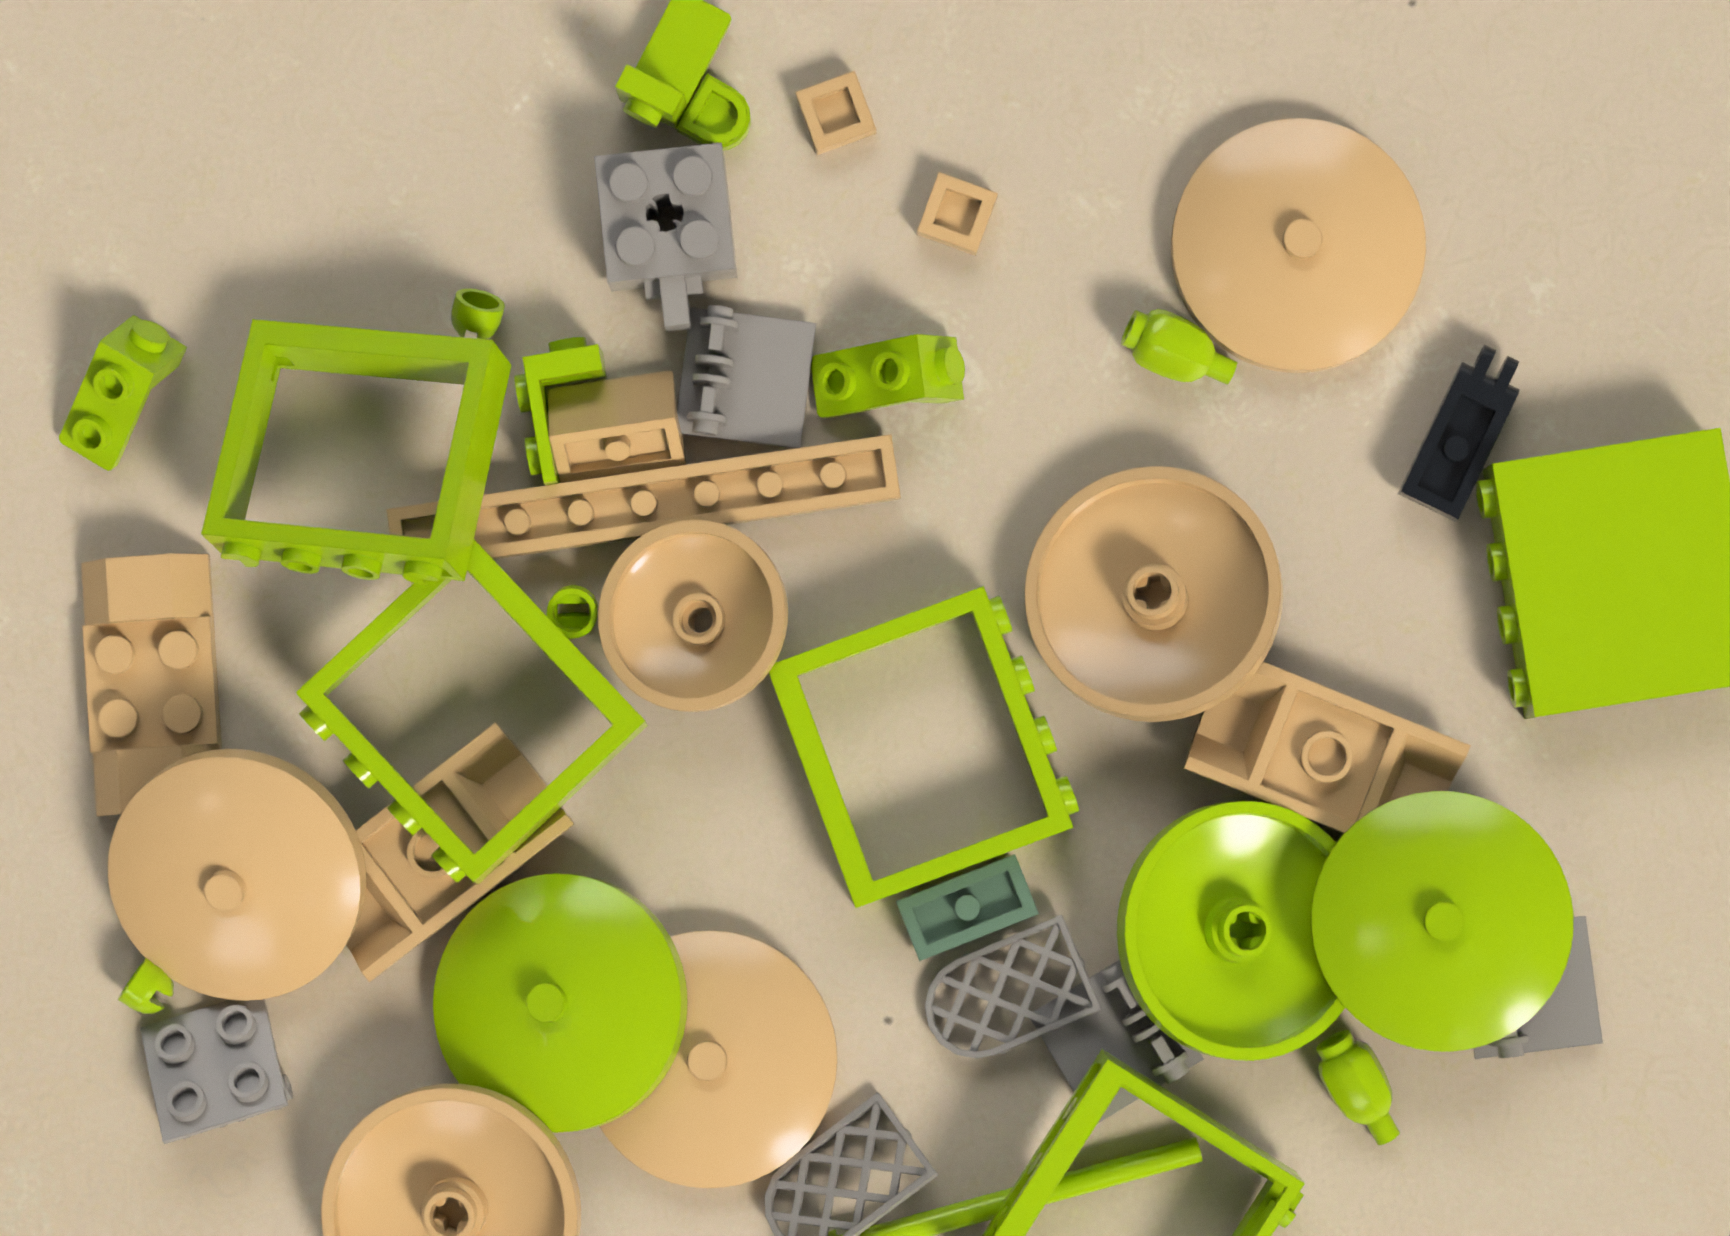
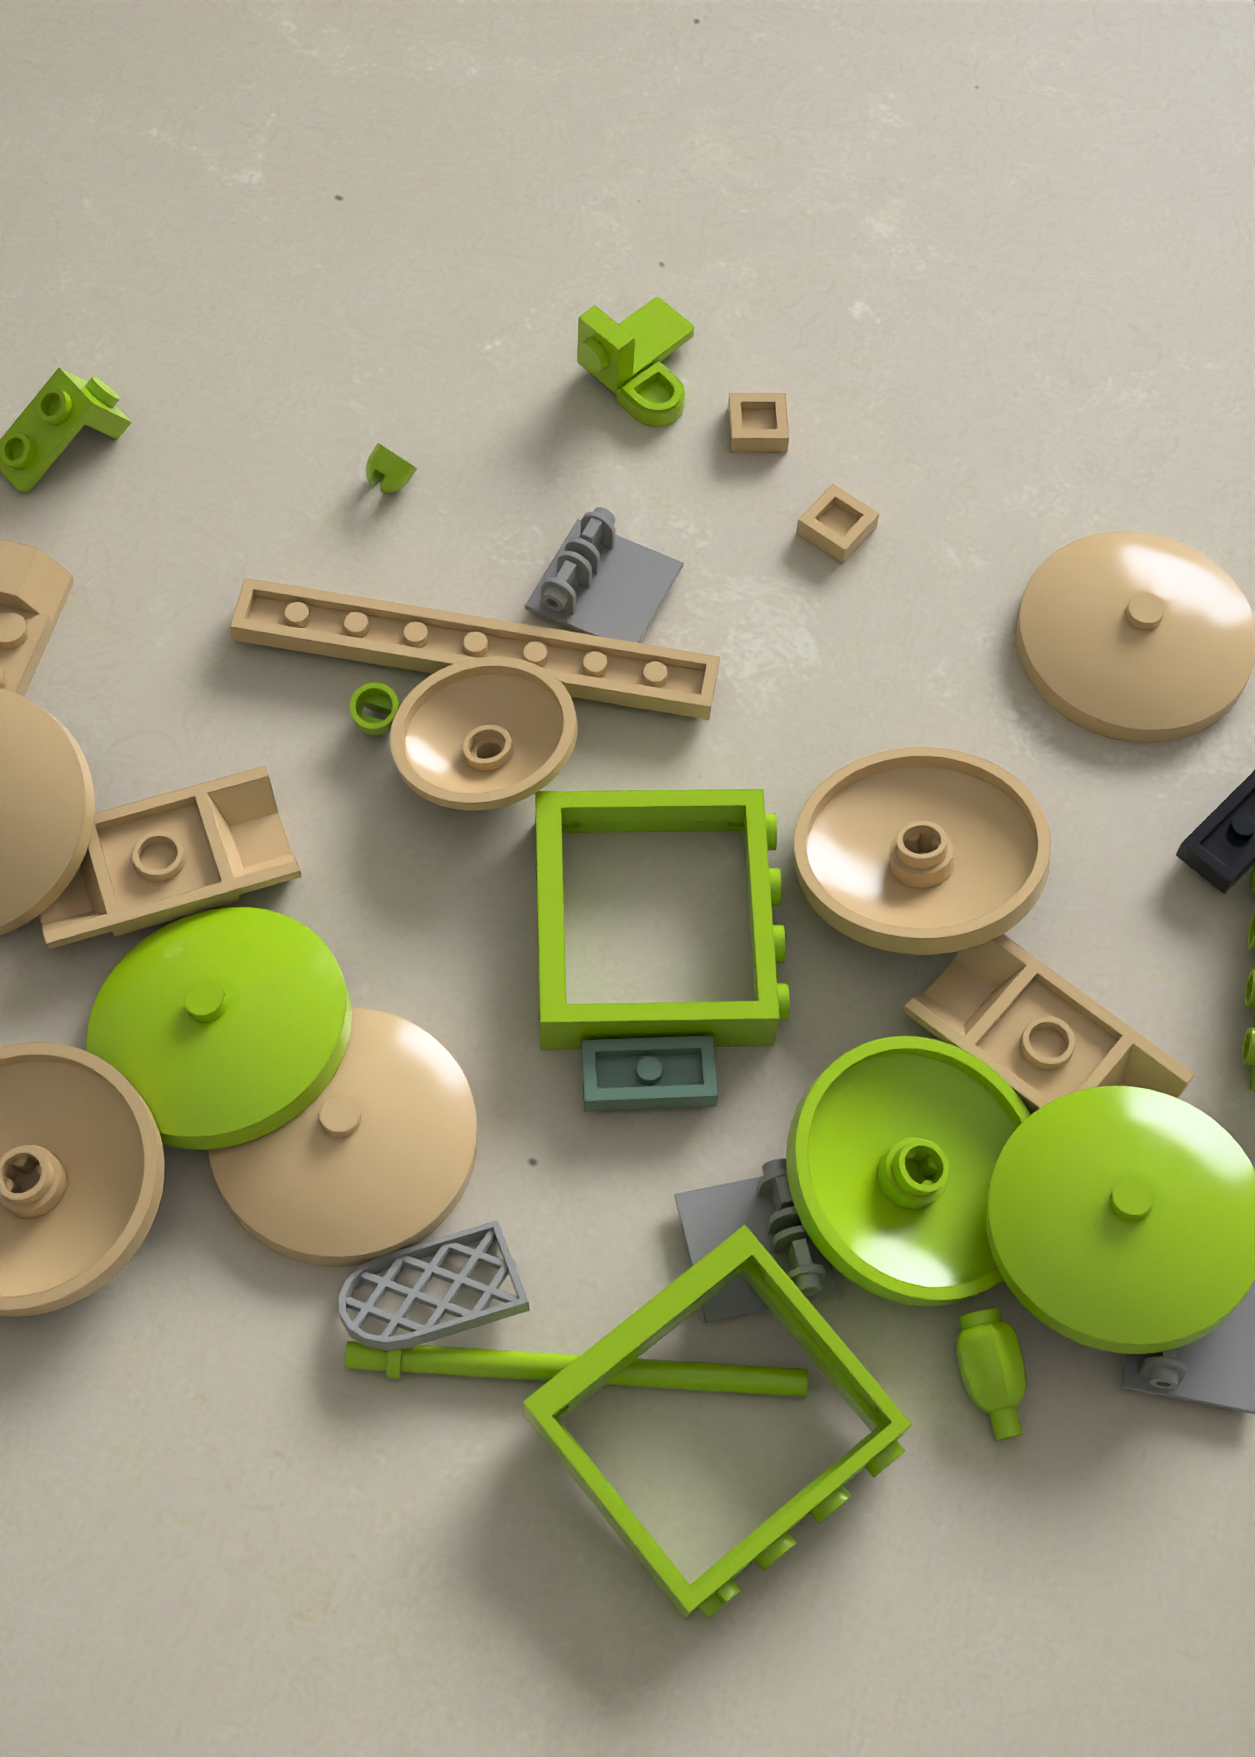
camera: 10 degrees right, 25 degrees down
(373, 353) = (353, 469): lime window -> none
(408, 805) = (286, 829): lime window -> none
(566, 362) = (437, 523): lime bracket -> none
(615, 426) = (473, 583): tan panel -> none
(672, 261) = (582, 441): light grey hinge -> none
(888, 374) = (737, 604): lime bracket -> none
(975, 958) = (645, 1127): light grey window -> none
(1175, 347) = (1001, 674): lime plant -> none

